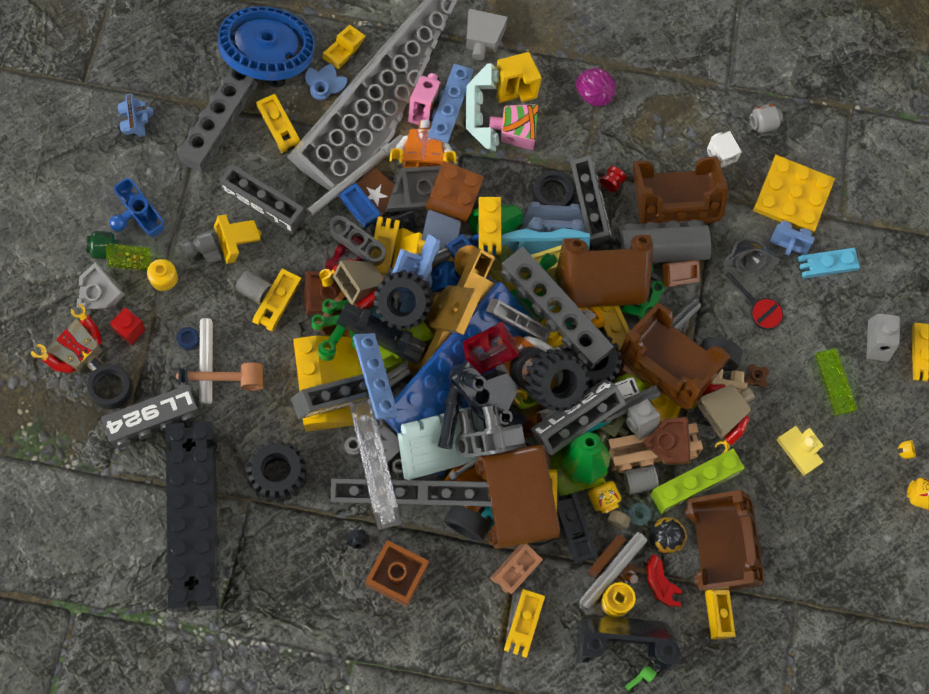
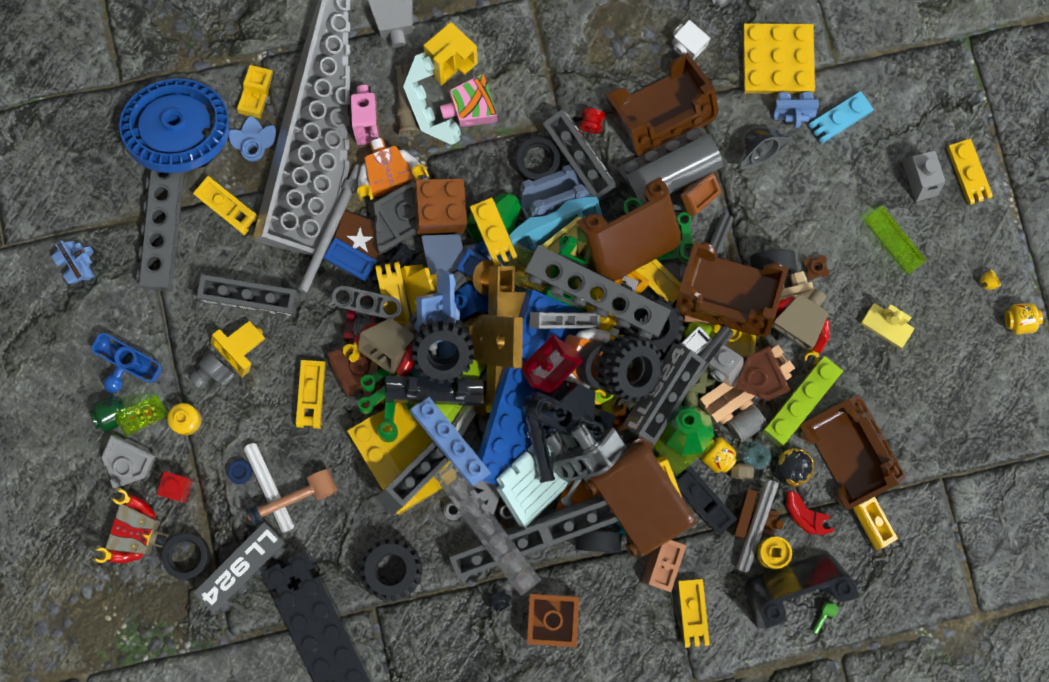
camera: 20 degrees left, 10 degrees up
(253, 287) = (281, 392): light grey piece -> none
(450, 103) = (393, 106): medium blue bracket -> none
(596, 87) = (533, 27): magenta hair -> none
(765, 312) = (799, 196): piece -> none

